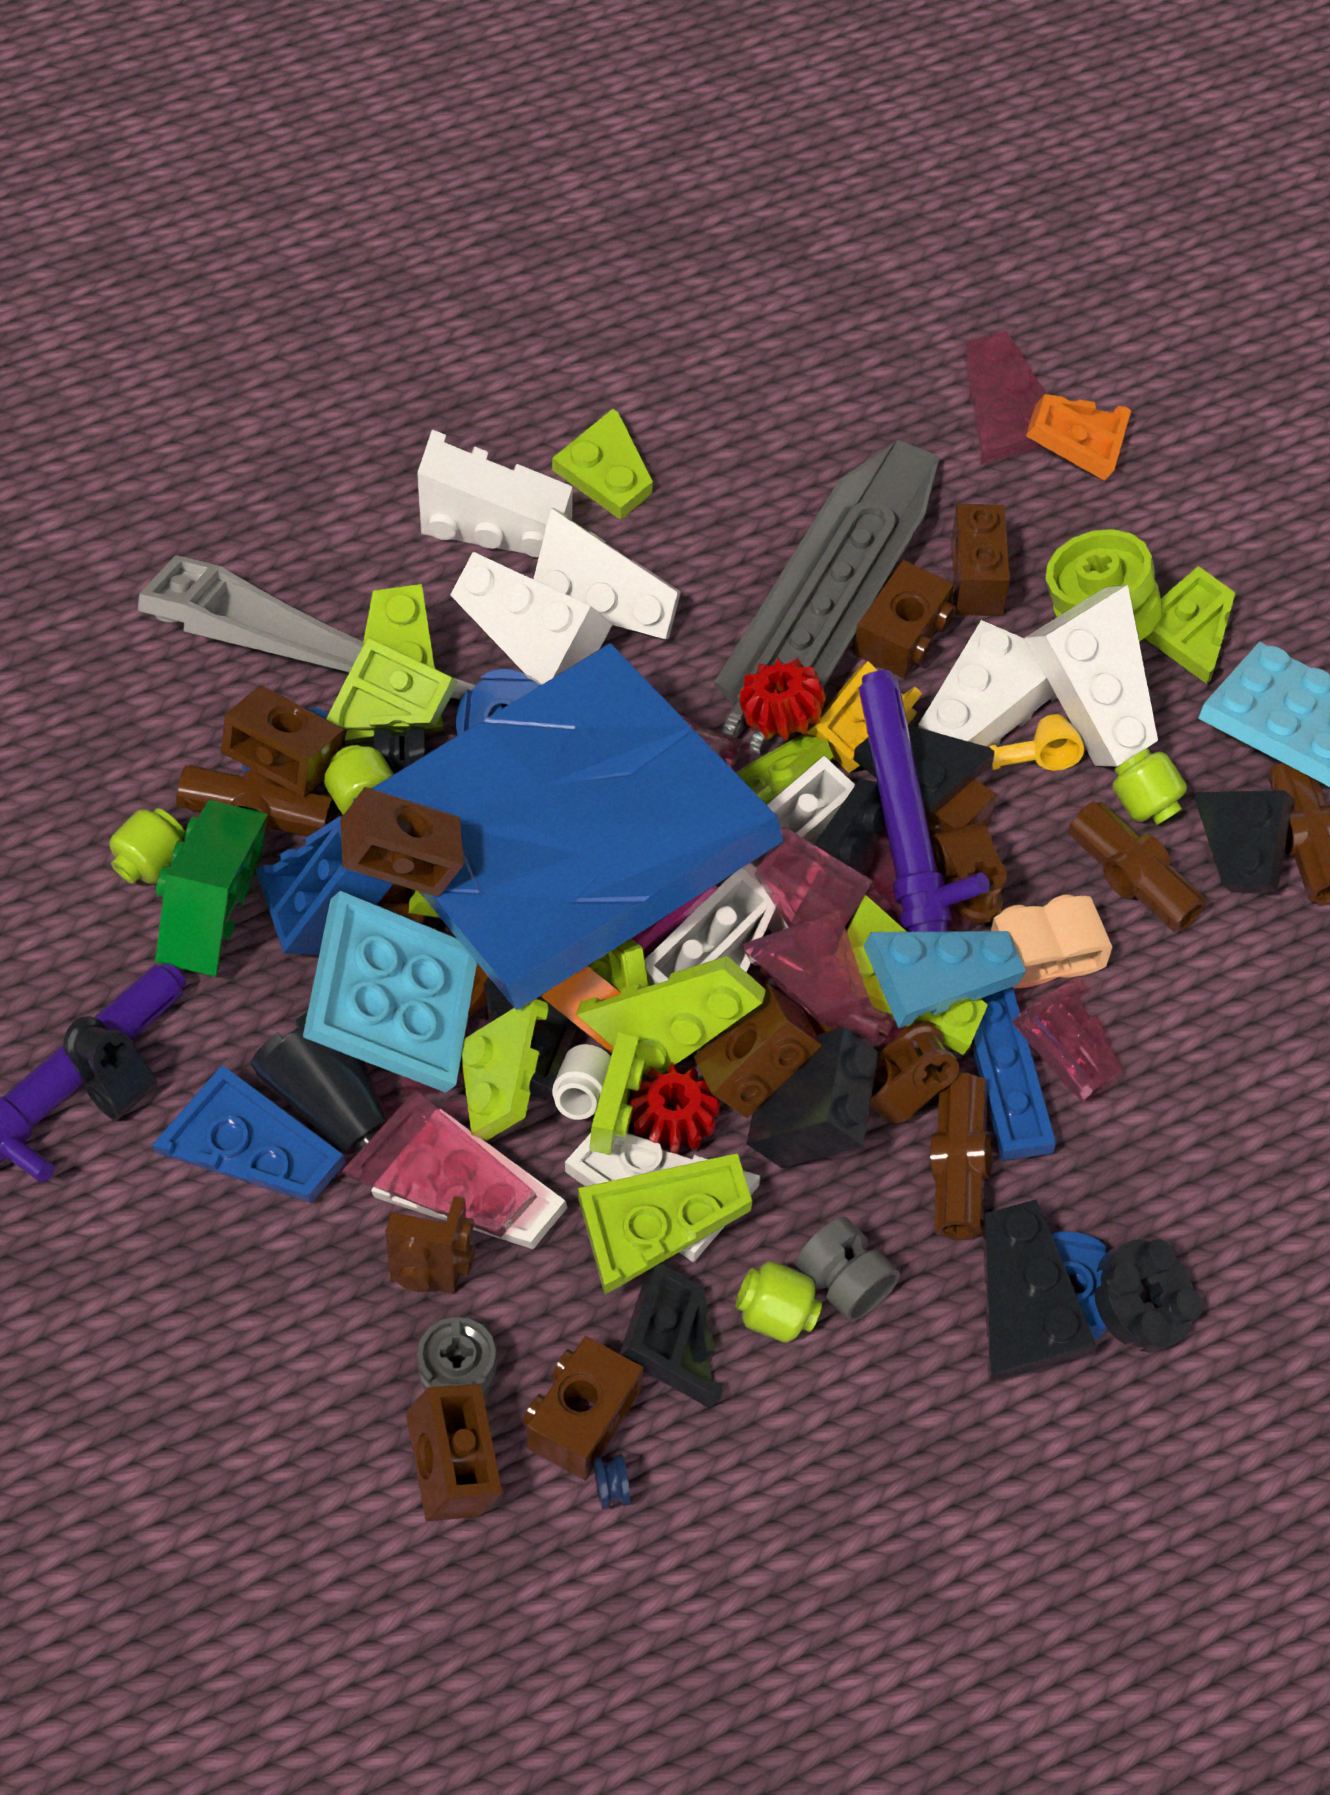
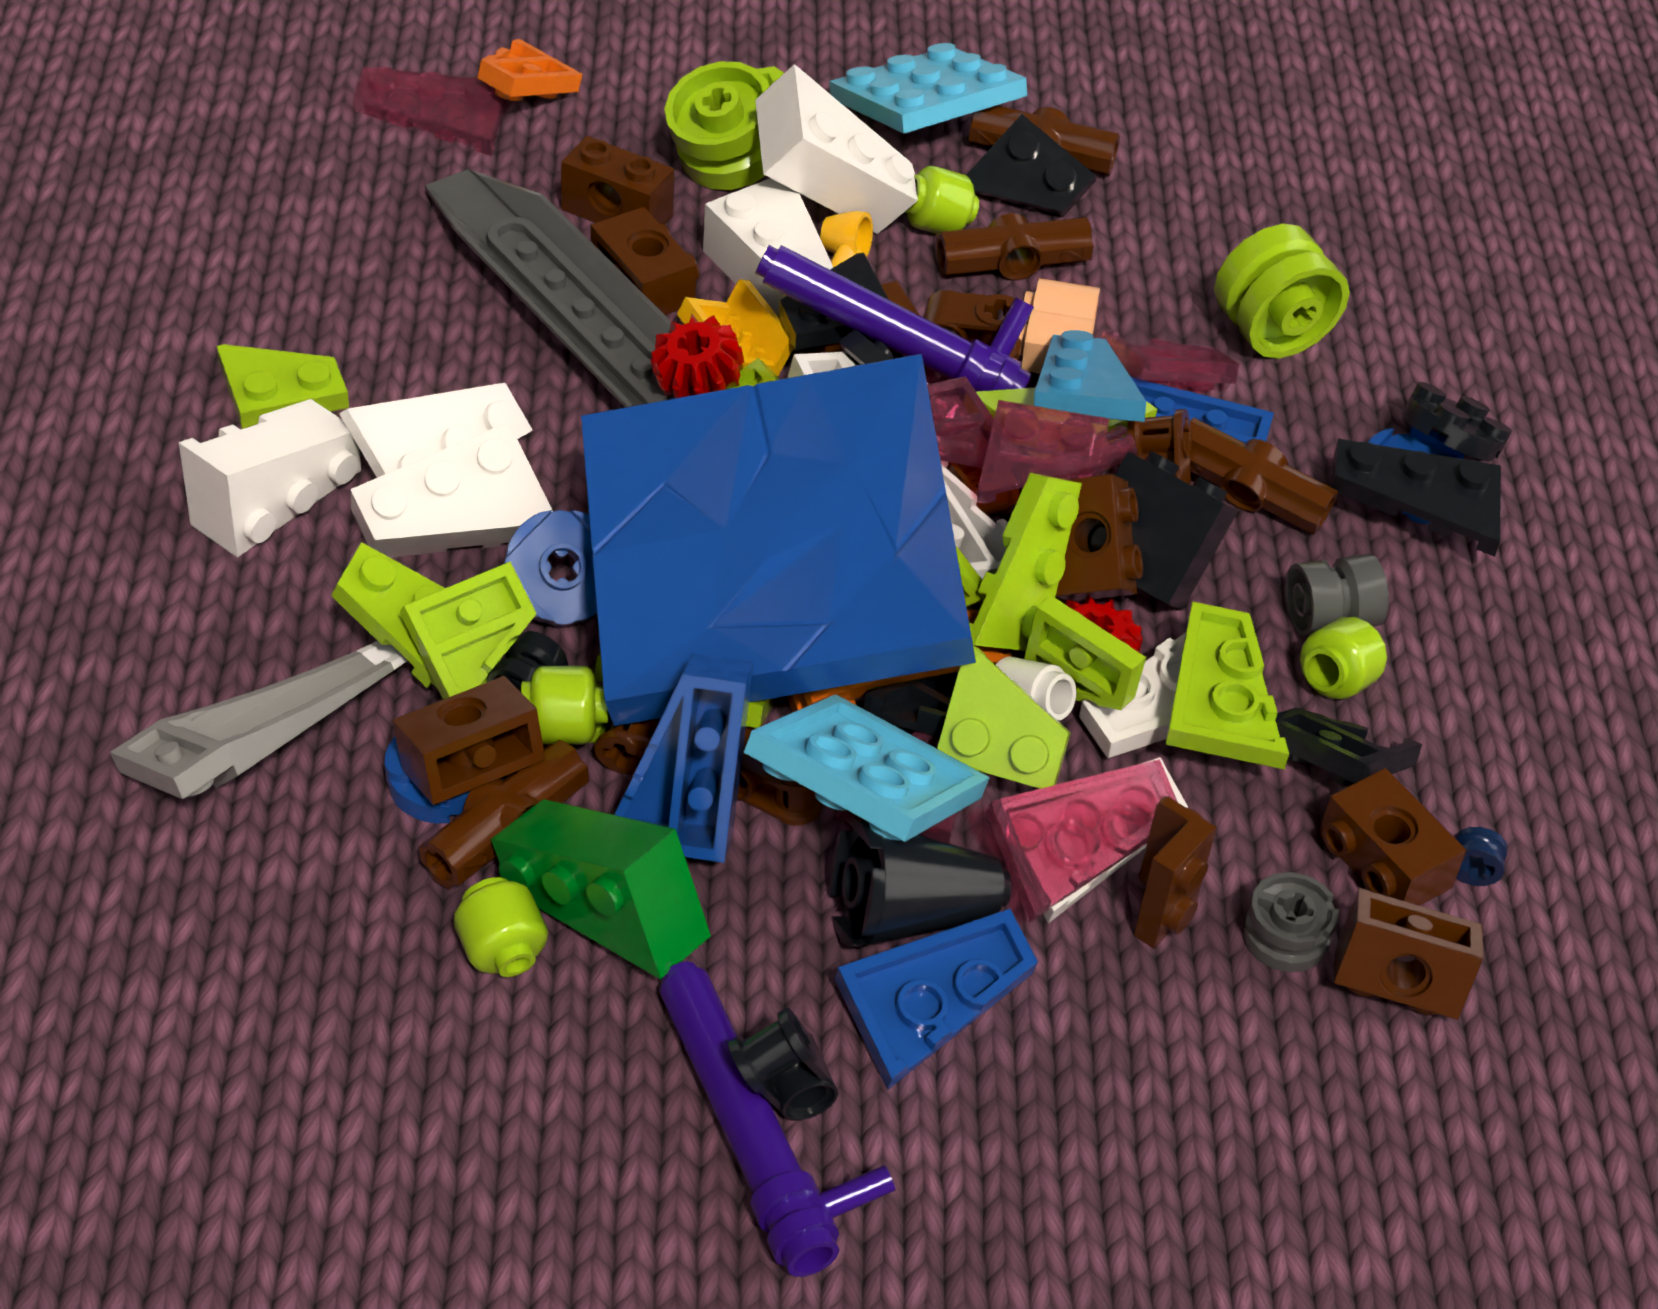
camera: 65 degrees left, 10 degrees down
(401, 842) = (749, 638): reddish brown brick -> none
(1205, 1085) = (1281, 291): none -> lime wheel

